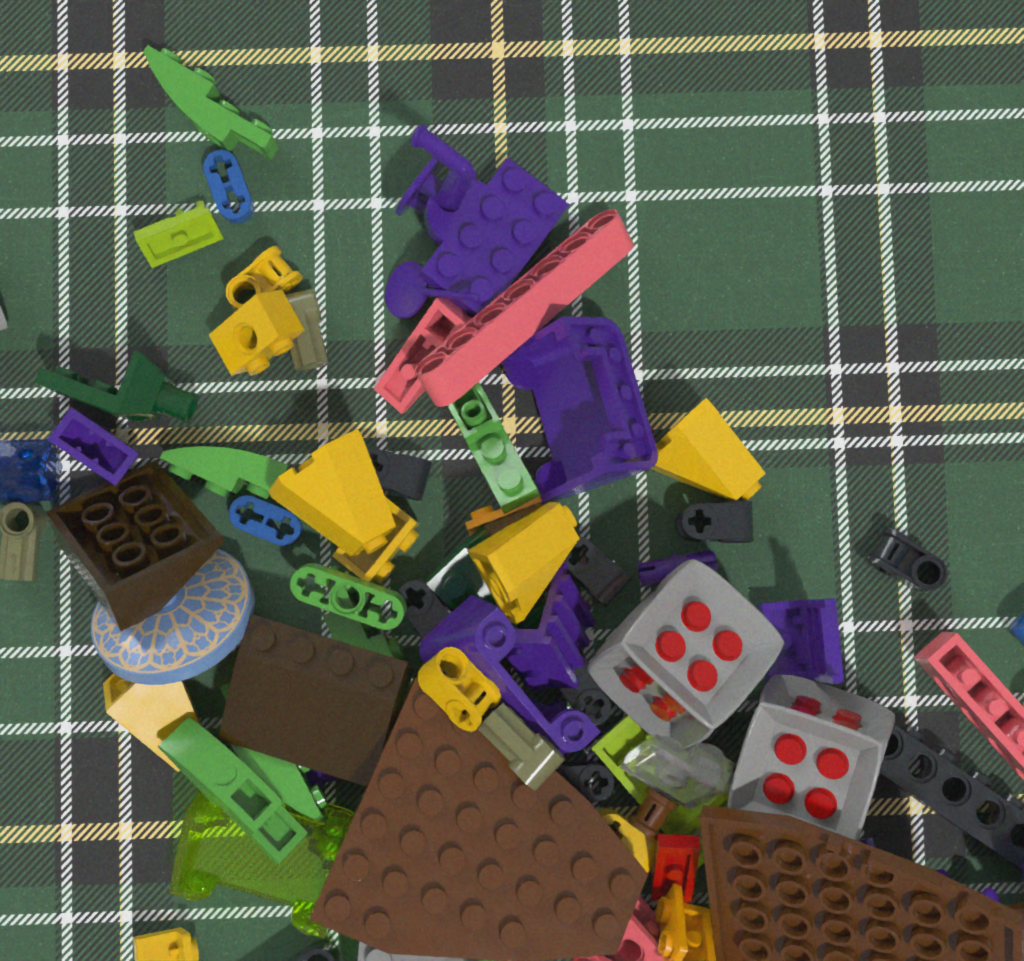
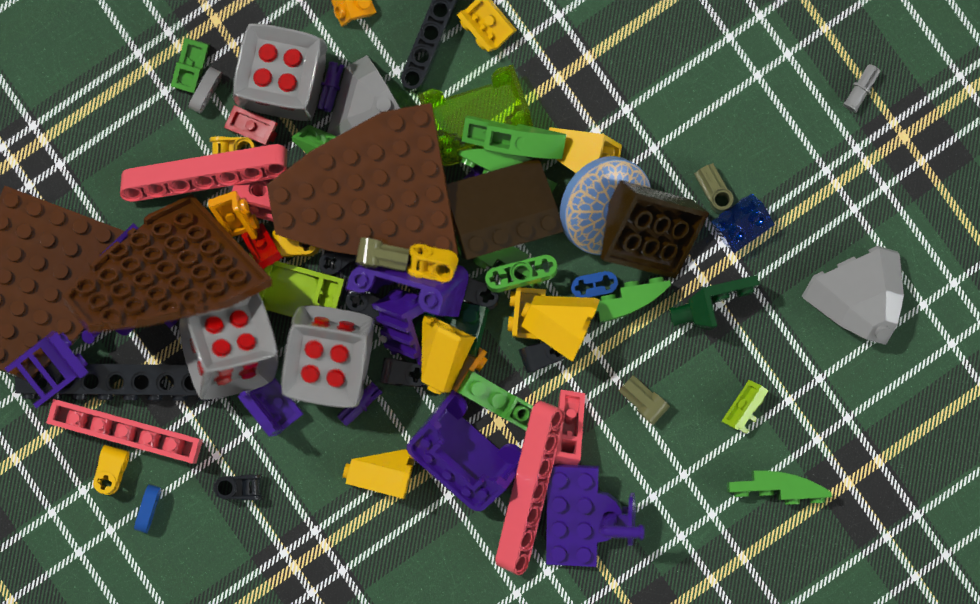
camera: 155 degrees right, 0 degrees up
(93, 445) = (708, 264): dark purple slope -> none
(220, 189) = (741, 446): blue beam -> none
(257, 333) = (664, 379): yellow brick -> none
(262, 278) = (681, 411): yellow piece -> none
(408, 292) = (599, 454): dark purple piece -> none
(652, 813) = (291, 267): reddish brown bush -> none
(681, 775) = (289, 294): clear plate -> none
(722, 522) = (349, 443): black piece -> none

